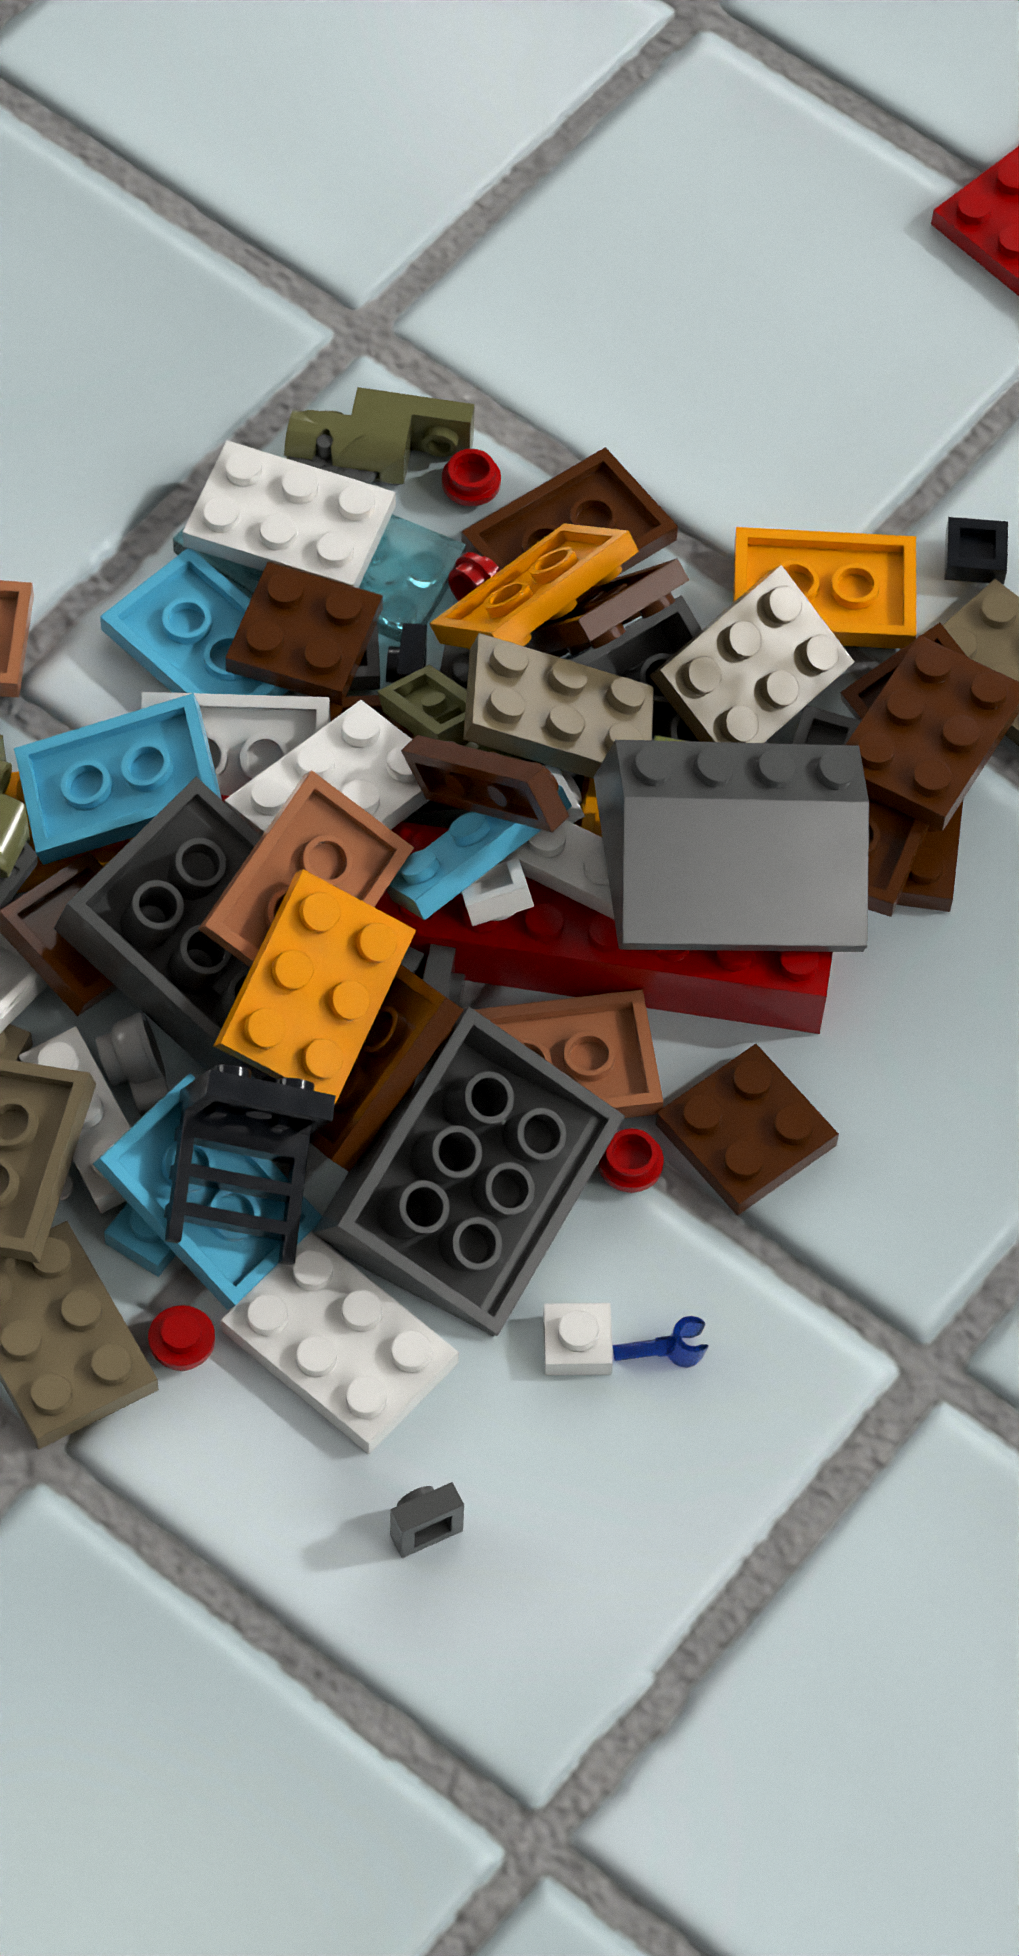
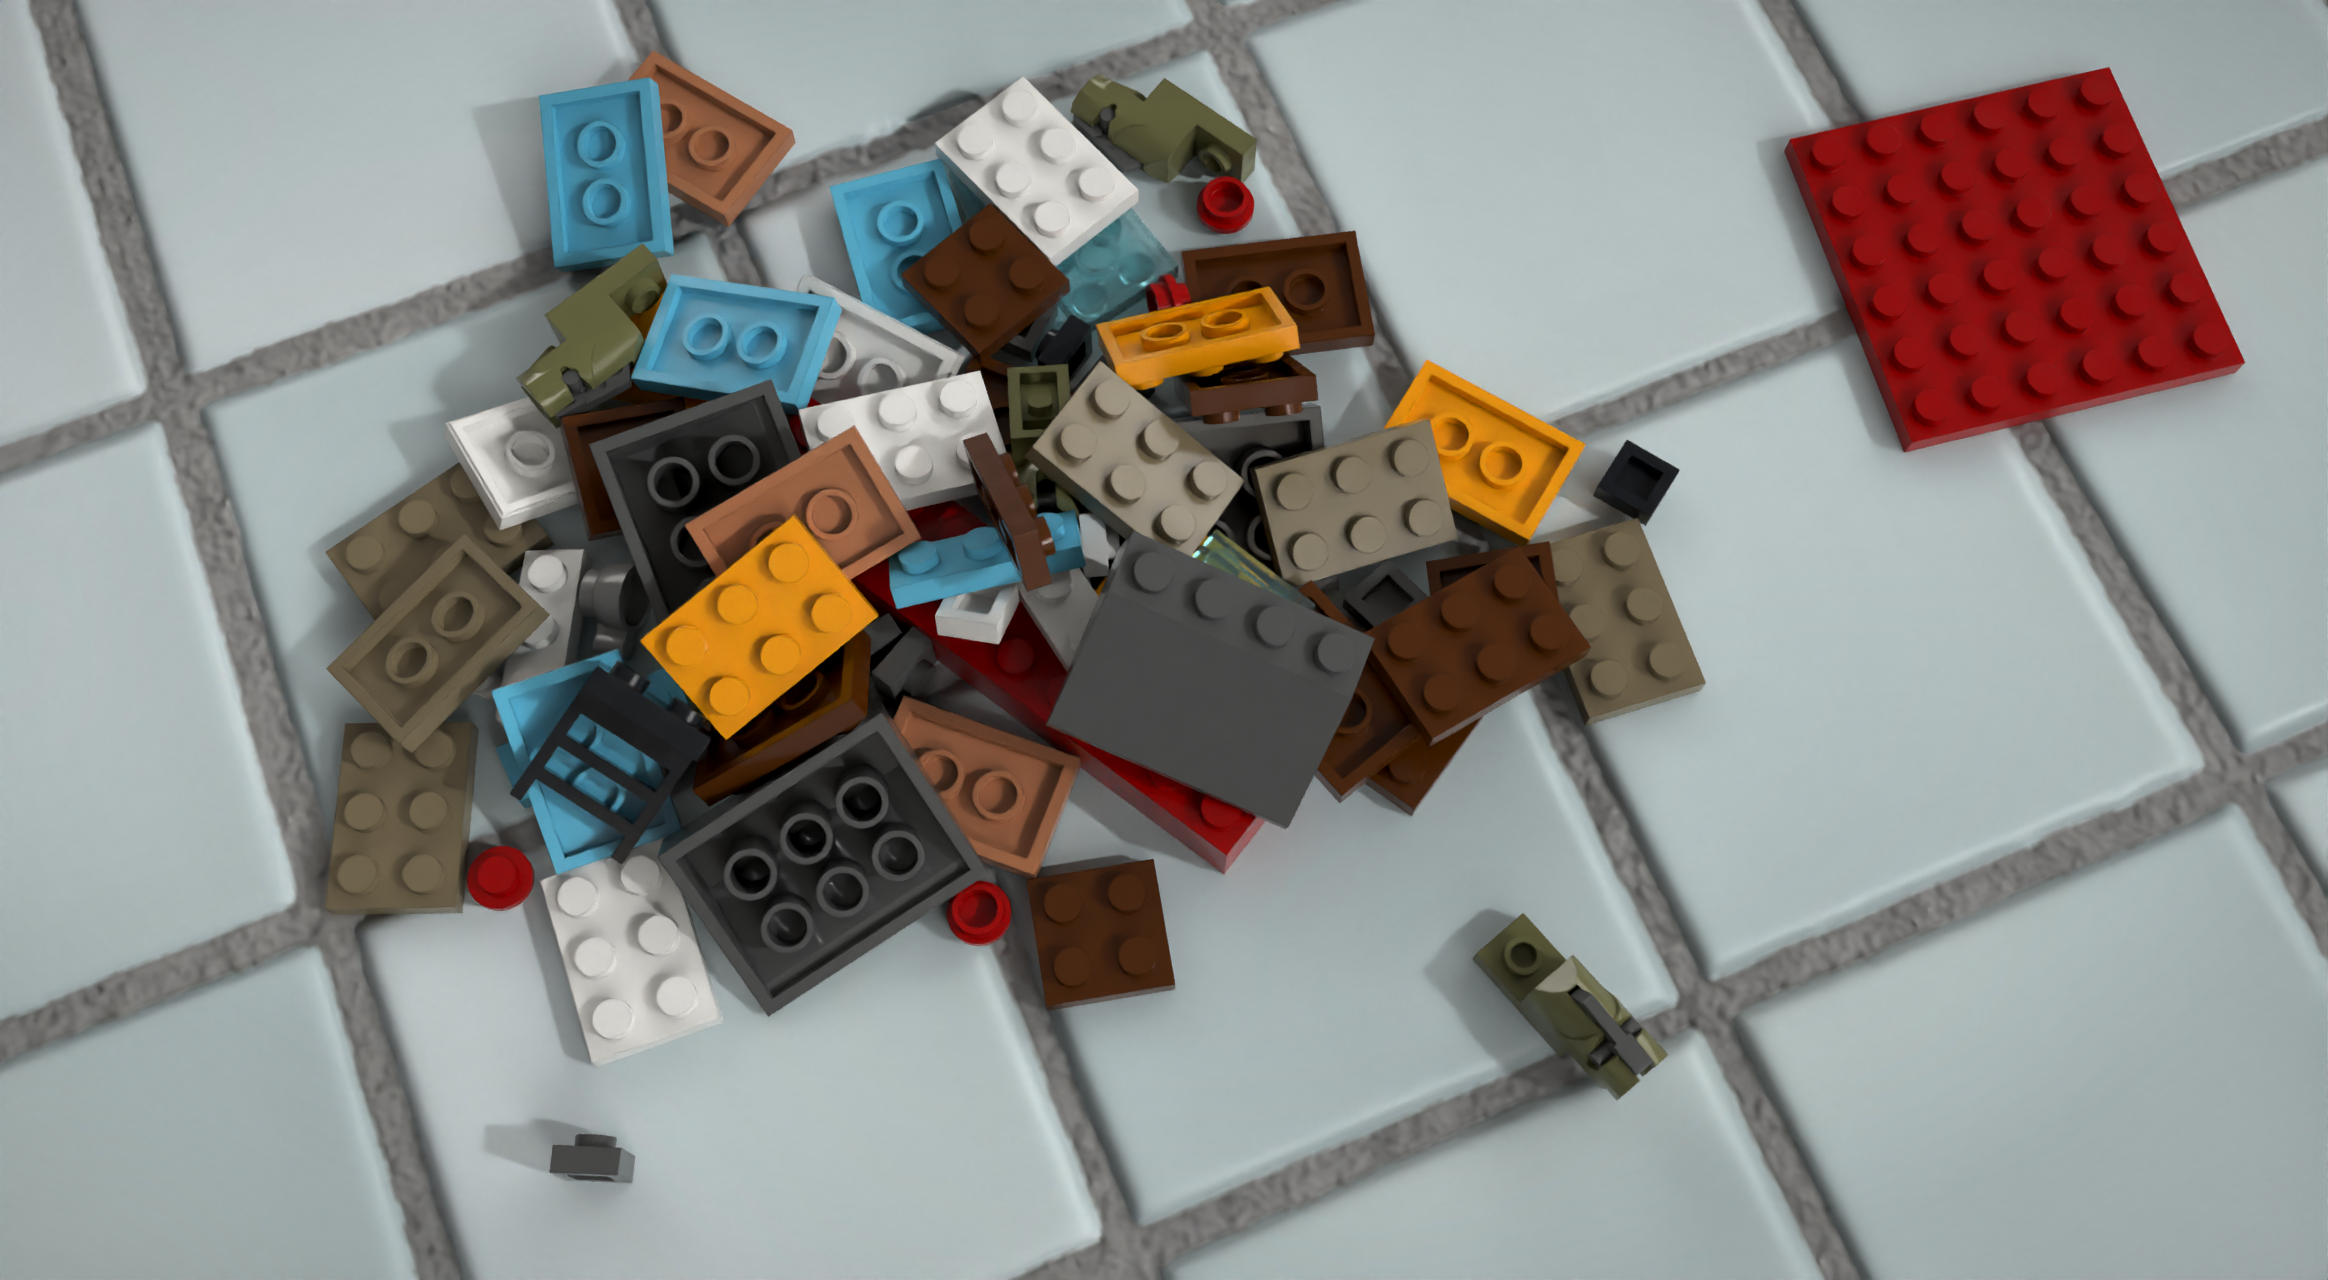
camera: 30 degrees right, 10 degrees up
(577, 1339) = (833, 1057): white plate -> none
(671, 1346) = (899, 1102): clear blue hand -> none

